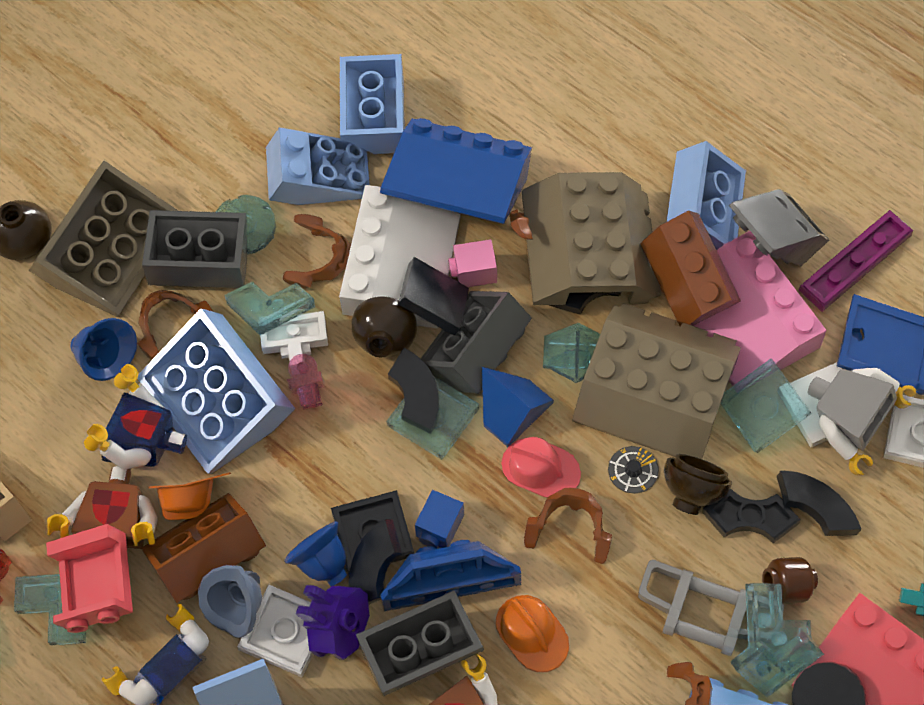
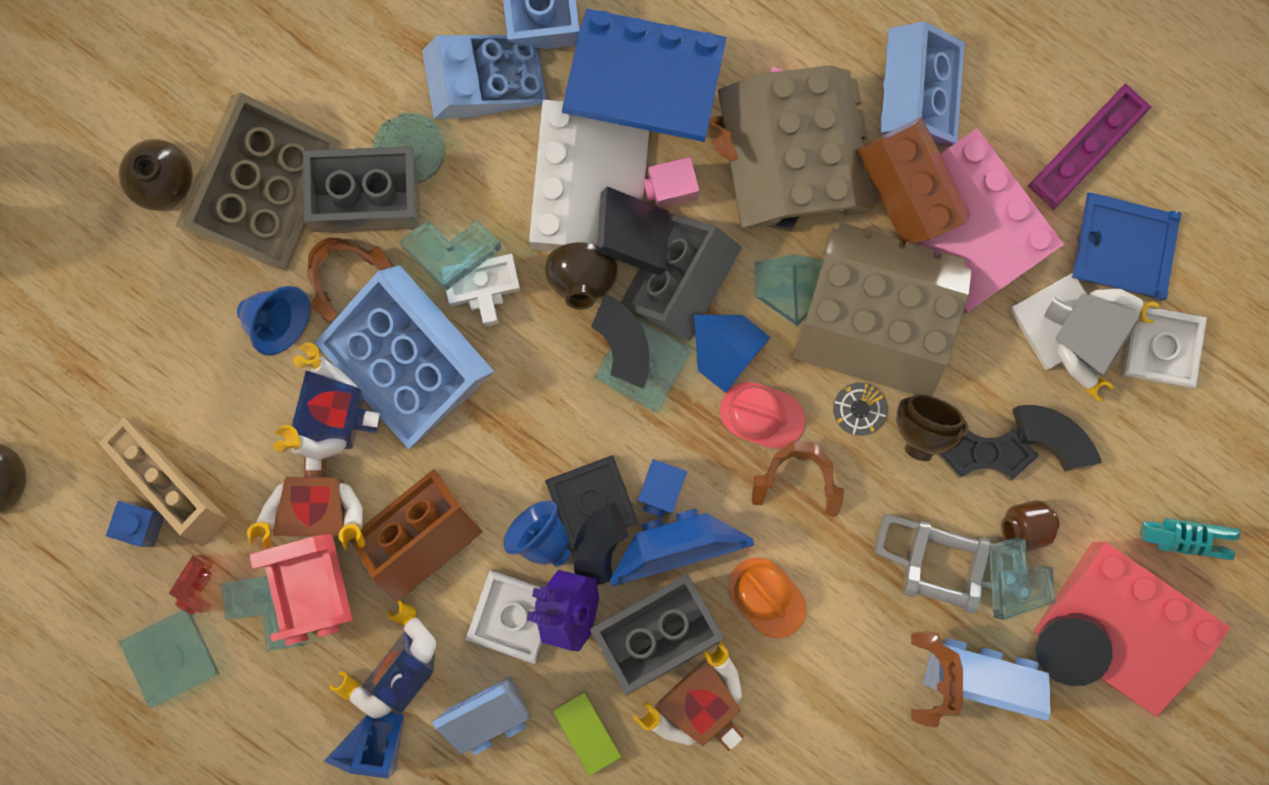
camera: 10 degrees left, 20 degrees up
(185, 500) = (391, 481): orange piece -> none
(231, 599) = (455, 595): sand blue helmet -> none
(305, 380) = (503, 343): clear pink hips -> none
(330, 270) = (523, 179): dark orange helmet -> none
(764, 405) = (999, 332): clear light blue tile -> none
(772, 670) = (1013, 627): clear light blue tile -> none
(779, 226) = (1009, 122): slope -> none

